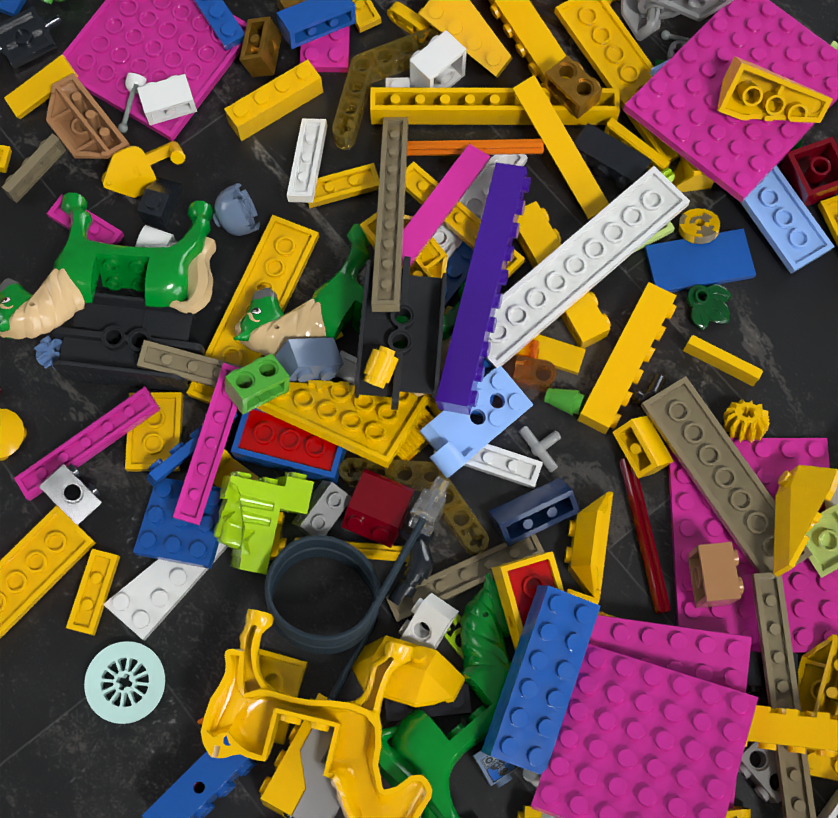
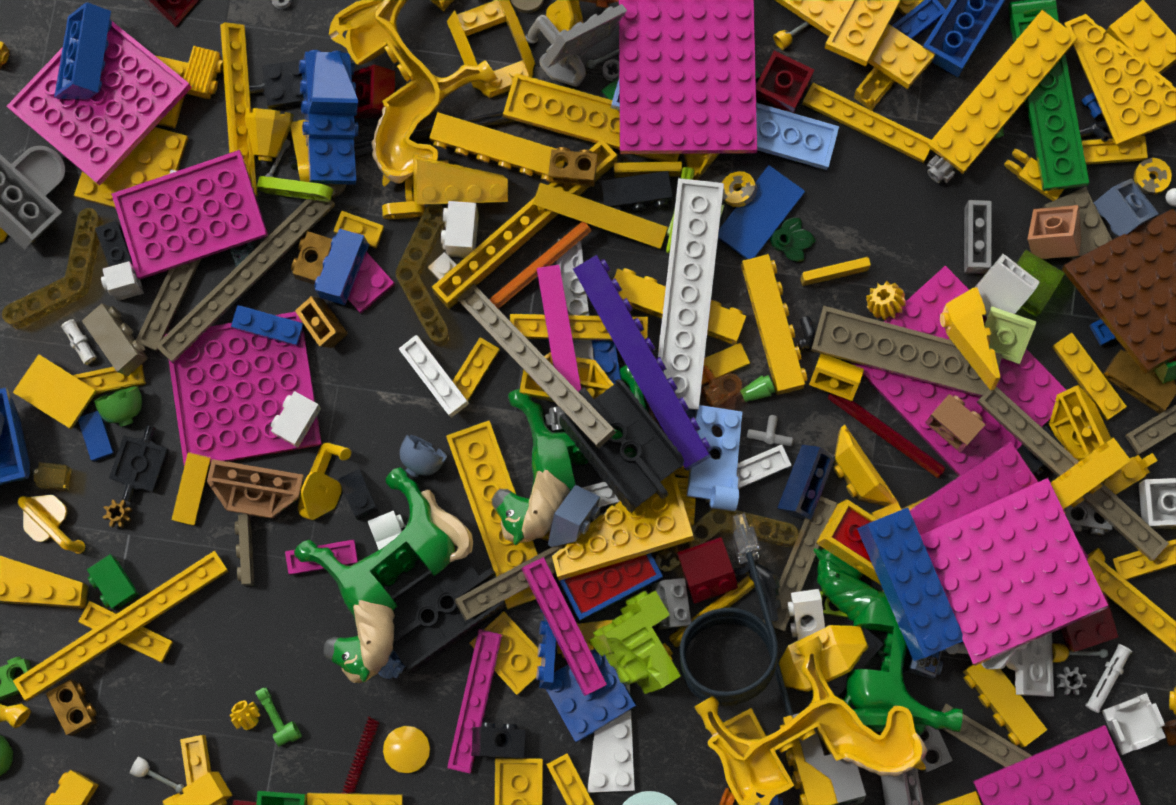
camera: 40 degrees left, 5 degrees up
(132, 82) = (260, 428): hinge -> none
(258, 387) = (563, 560): bright green brick -> none
(274, 100) = (367, 352): yellow brick -> none
(380, 367) = (636, 479): yellow brick -> none
(764, 95) = (705, 64): yellow wedge -> none

